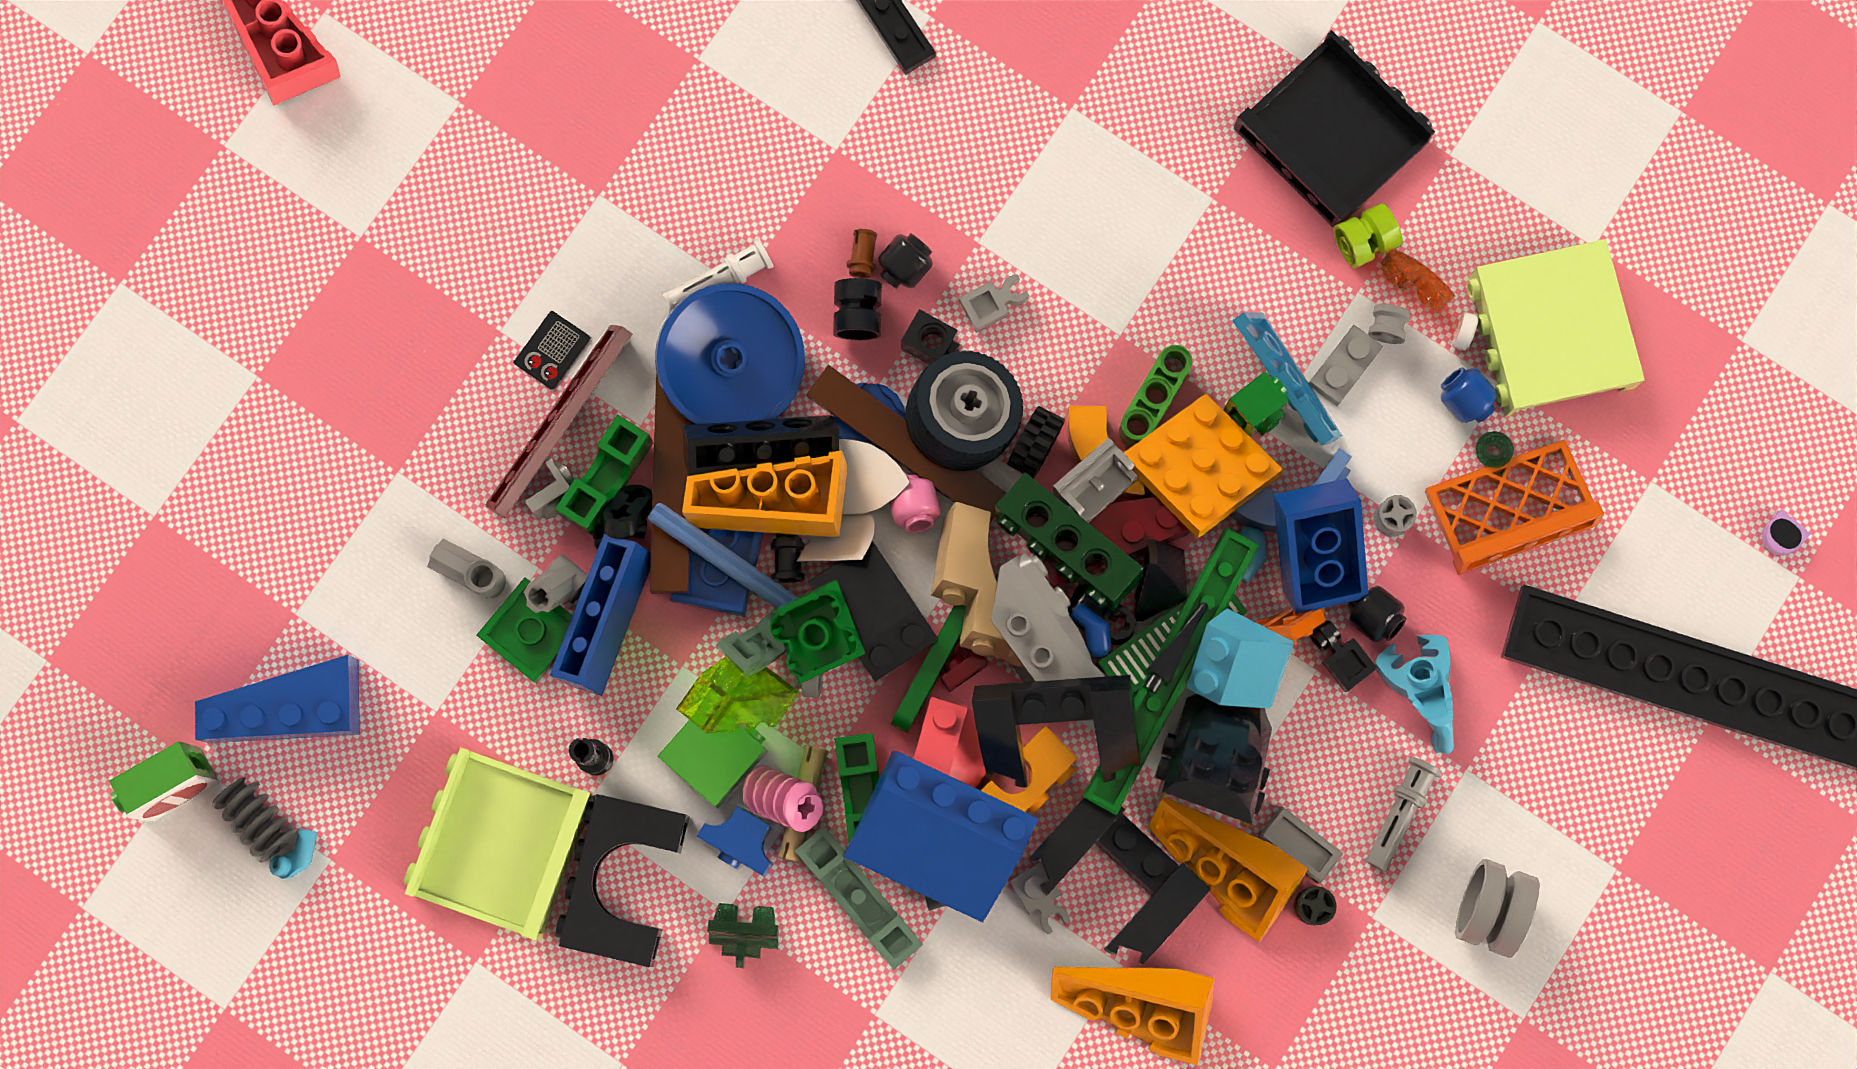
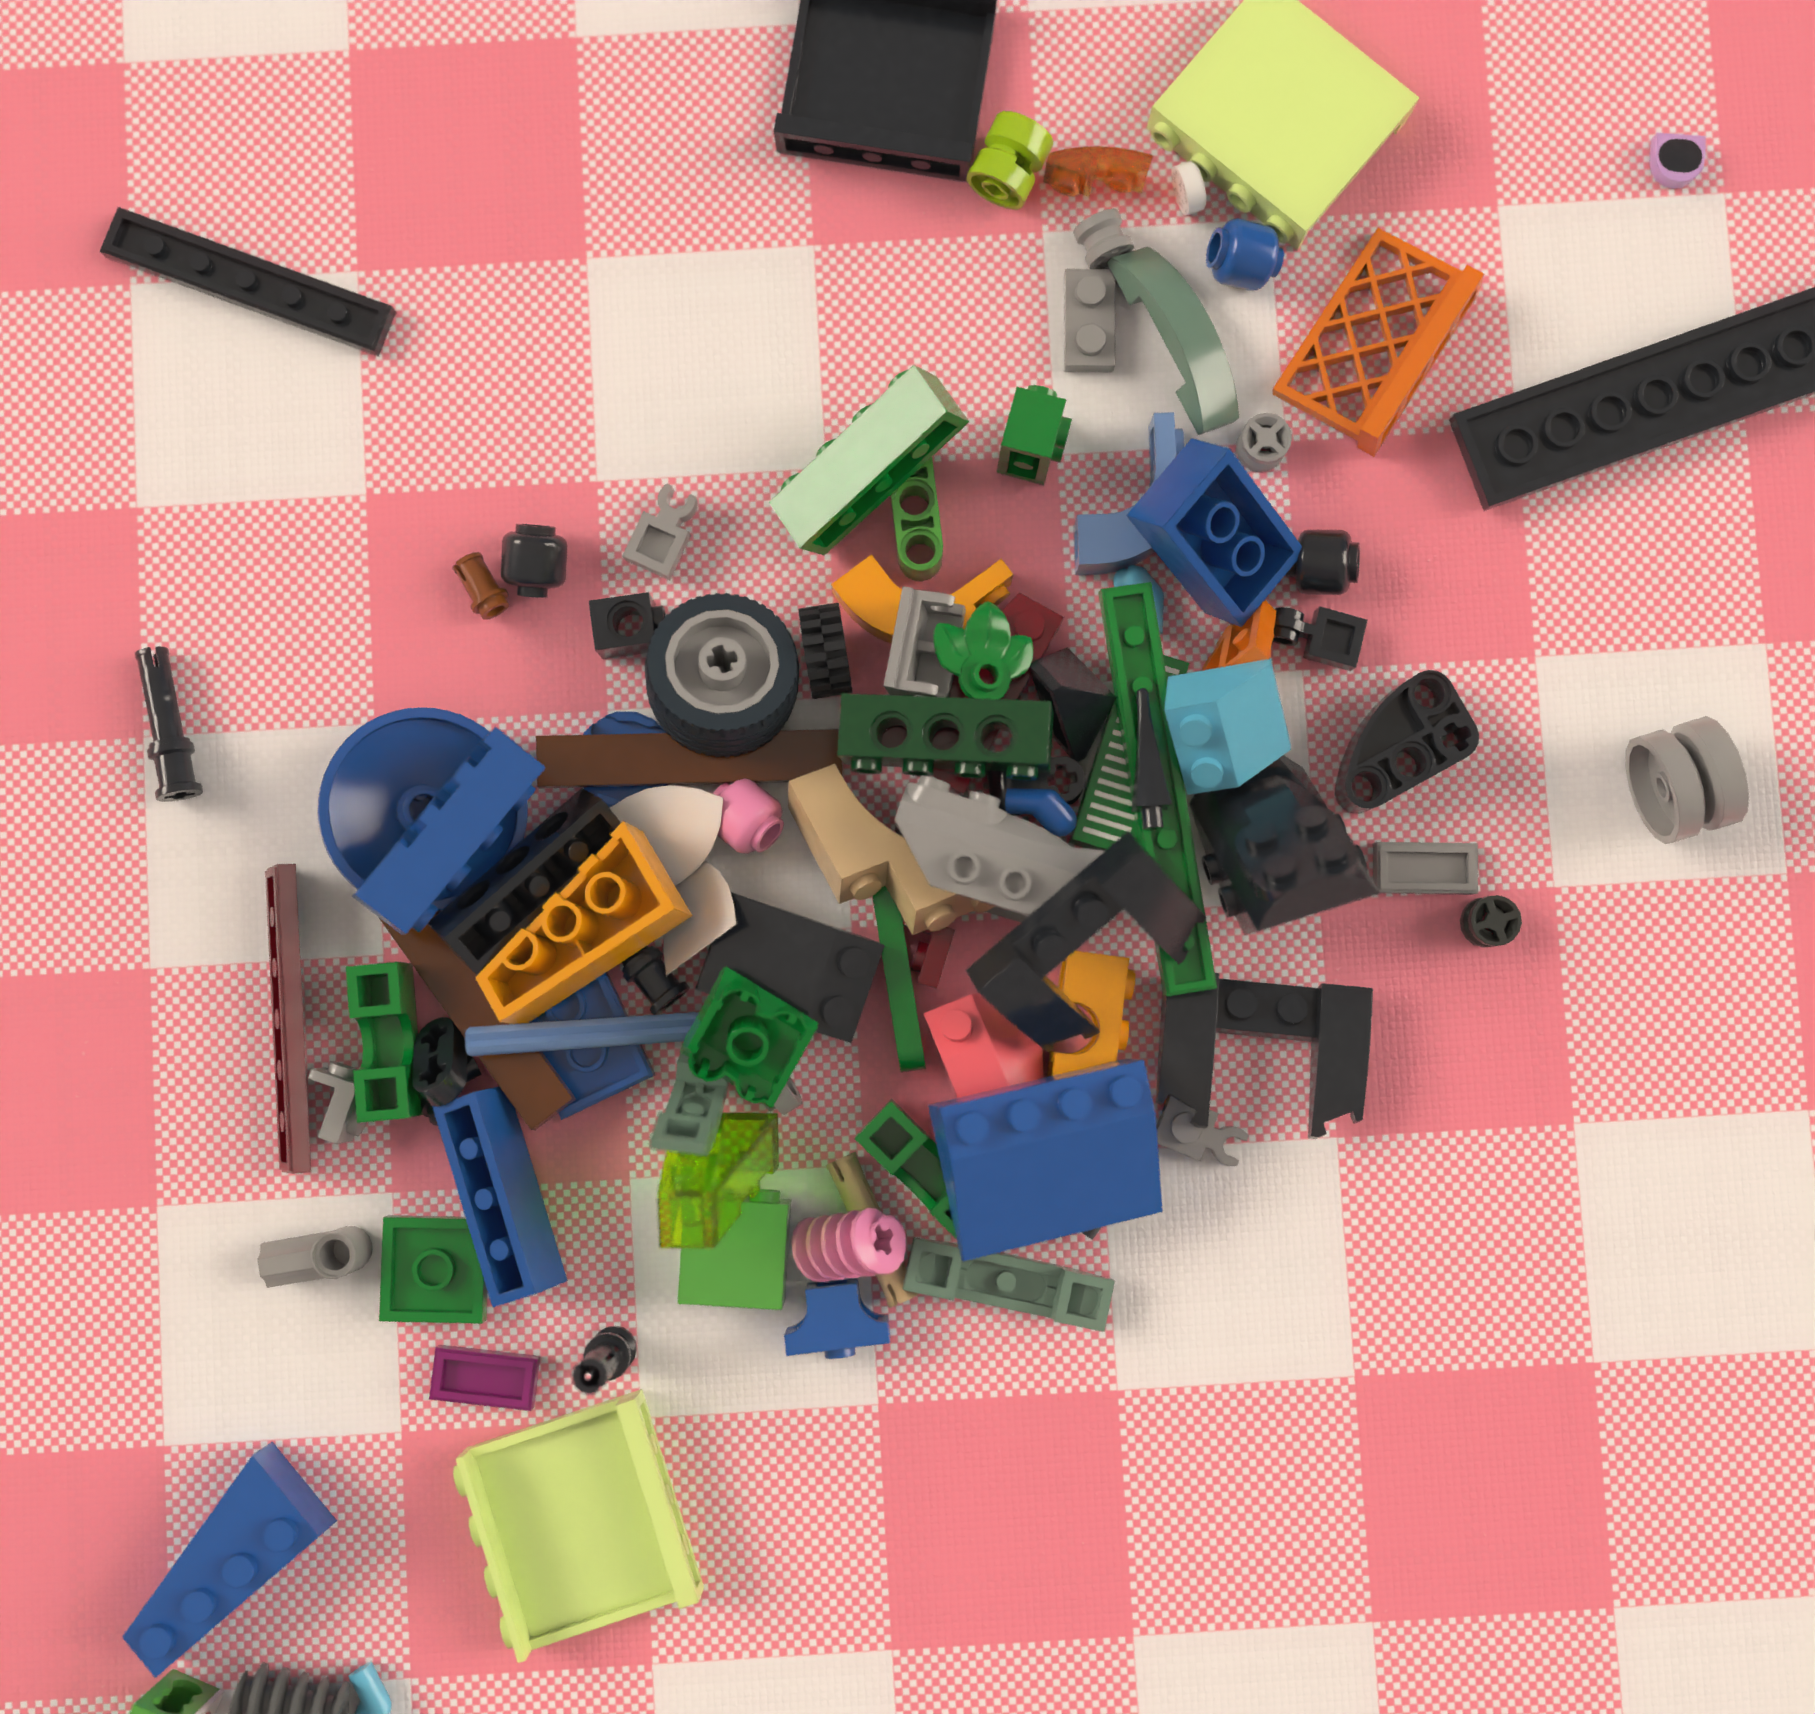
camera: 35 degrees left, 5 degrees up
(509, 716) = (484, 1377): none -> magenta tile
(552, 350) = (223, 945): black sticker -> none
(557, 584) = (425, 1196): light grey piece -> none
(588, 923) = (741, 1533): black arch -> none
(611, 212) = (169, 746): none -> black pin
(734, 269) = (354, 708): white pin -> none
(736, 381) = (449, 831): none -> blue wedge
(743, 938) = (894, 1426): clear green hips -> none
(857, 309) = (518, 646): black wheel -> none
(1129, 506) = (983, 645): none -> green plate
(1145, 349) = (868, 460): none -> brick
(1154, 1004) = (1402, 1155): light orange wedge -> none
(1202, 465) = (1024, 541): light orange plate -> none
(1244, 872) = (1388, 943): light orange wedge -> none
(1279, 363) = (1023, 370): dark azure wing -> none
(1351, 749) = (1405, 726): none -> black beam
(1396, 418) = (1187, 332): none -> sand green slope
(1409, 797) = (1509, 726): light grey pin -> none
(1425, 685) = (1433, 600): medium azure animal -> none
(1497, 440) = (1310, 280): clear green plate -> none

